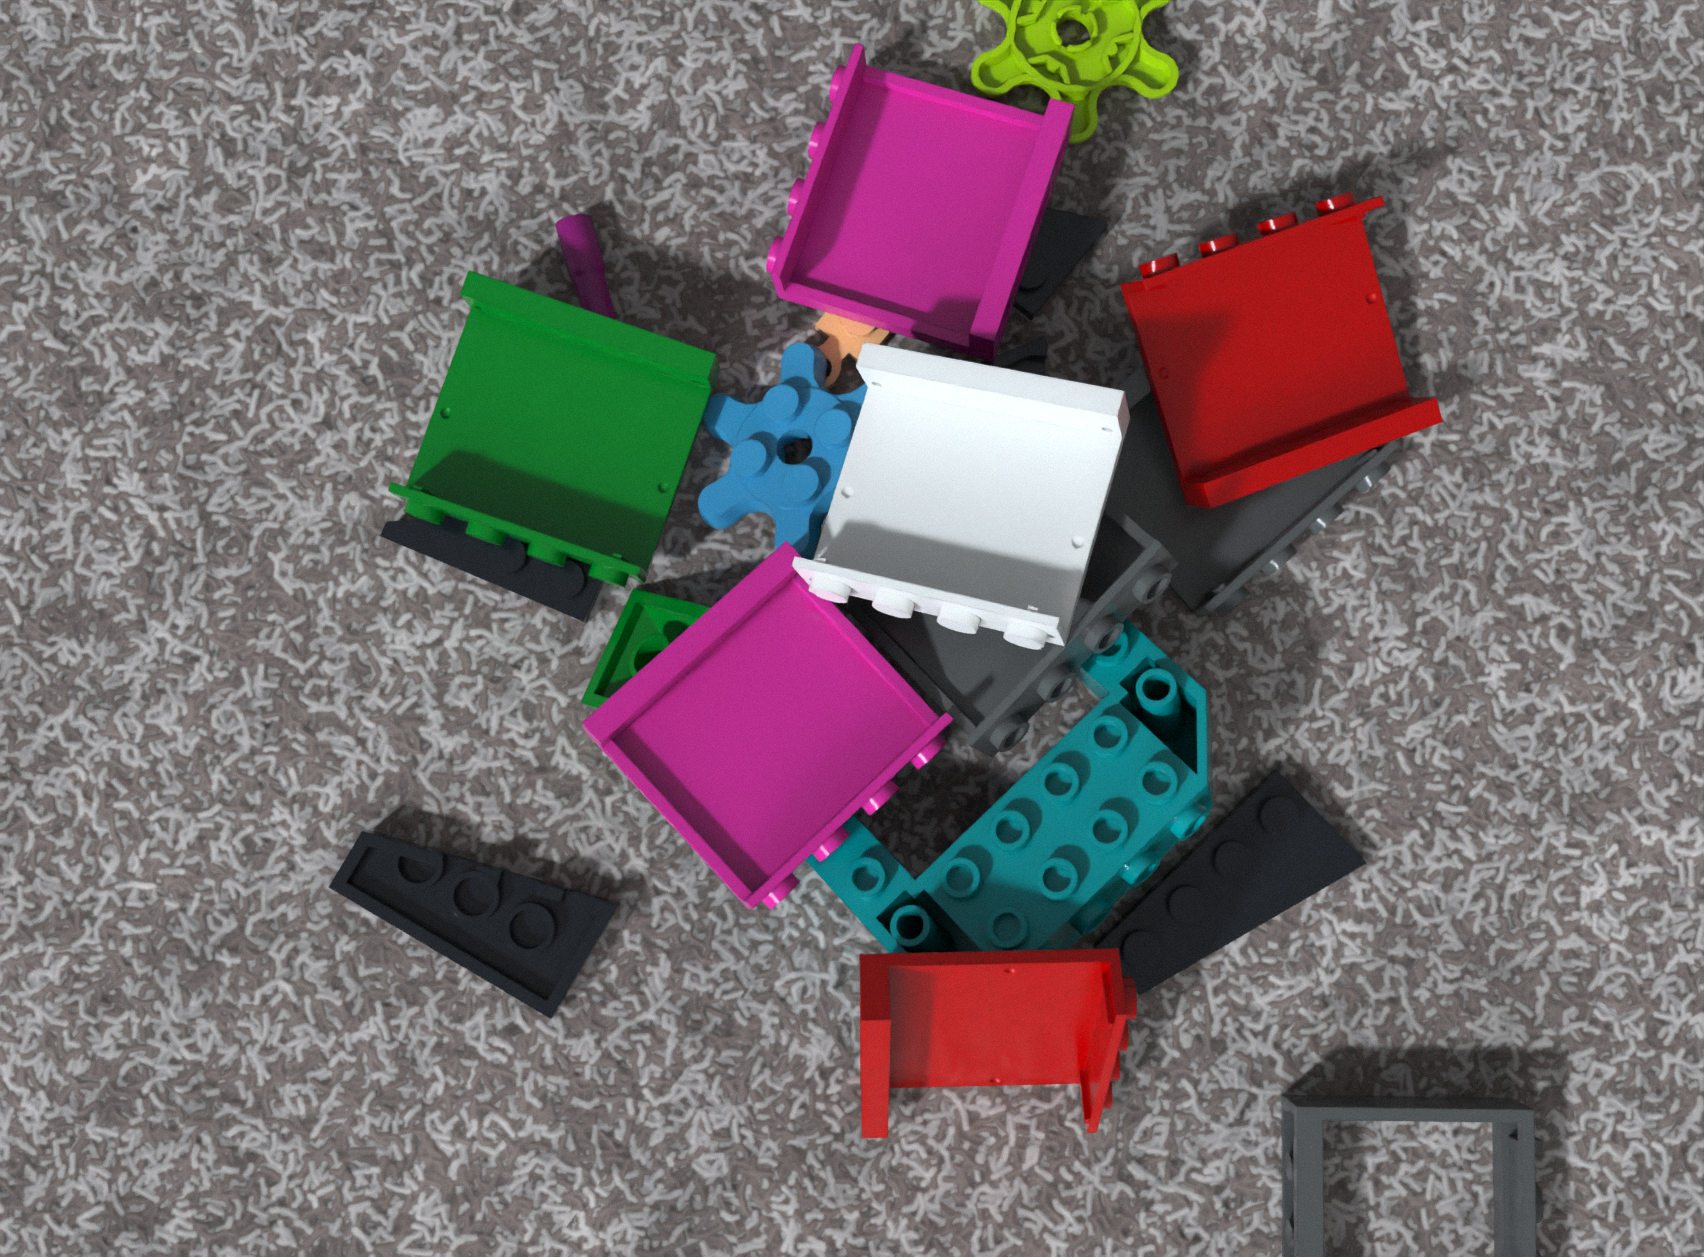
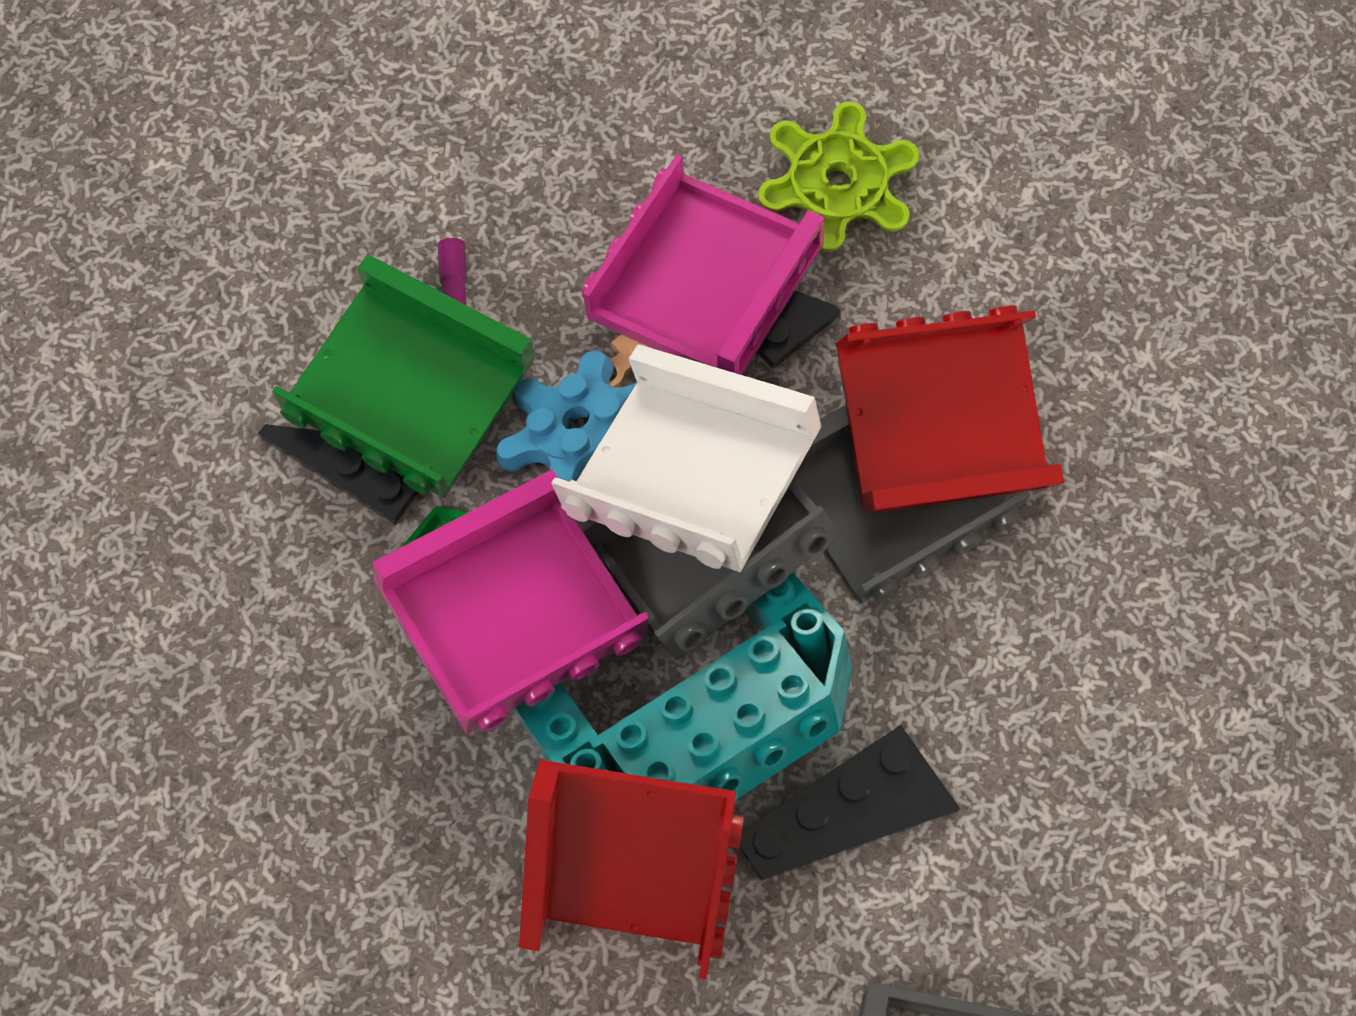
camera: 15 degrees right, 15 degrees down
(489, 920) = (273, 730): black wing -> none

